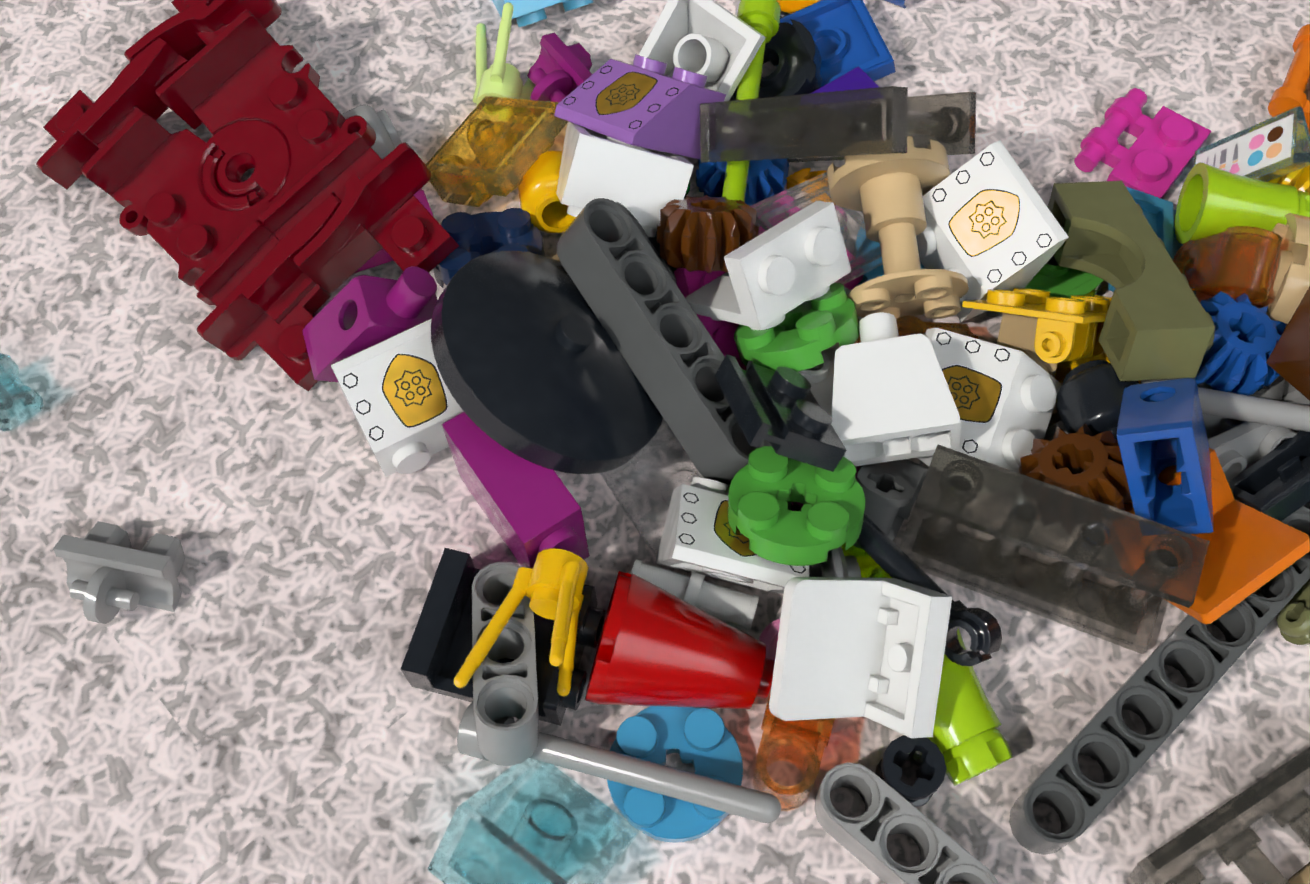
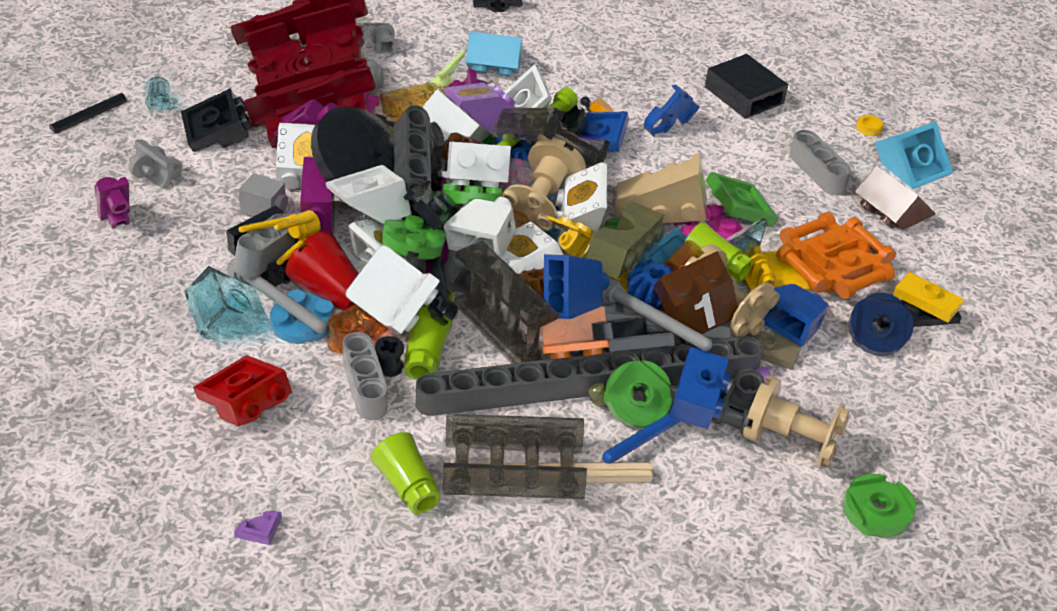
camera: 25 degrees right, 20 degrees down
(112, 723) = (113, 200): none -> magenta hips
(166, 398) = (216, 119): none -> black plate
(318, 30) = (384, 38): none -> light grey bush
(398, 534) = (261, 194): none -> light grey brick
(654, 451) = (374, 193): none -> white slope
(1086, 123) = (674, 191): none -> tan wedge
(1159, 68) = (740, 199): none -> bright green plate
(1263, 479) = (619, 328): none -> black beam

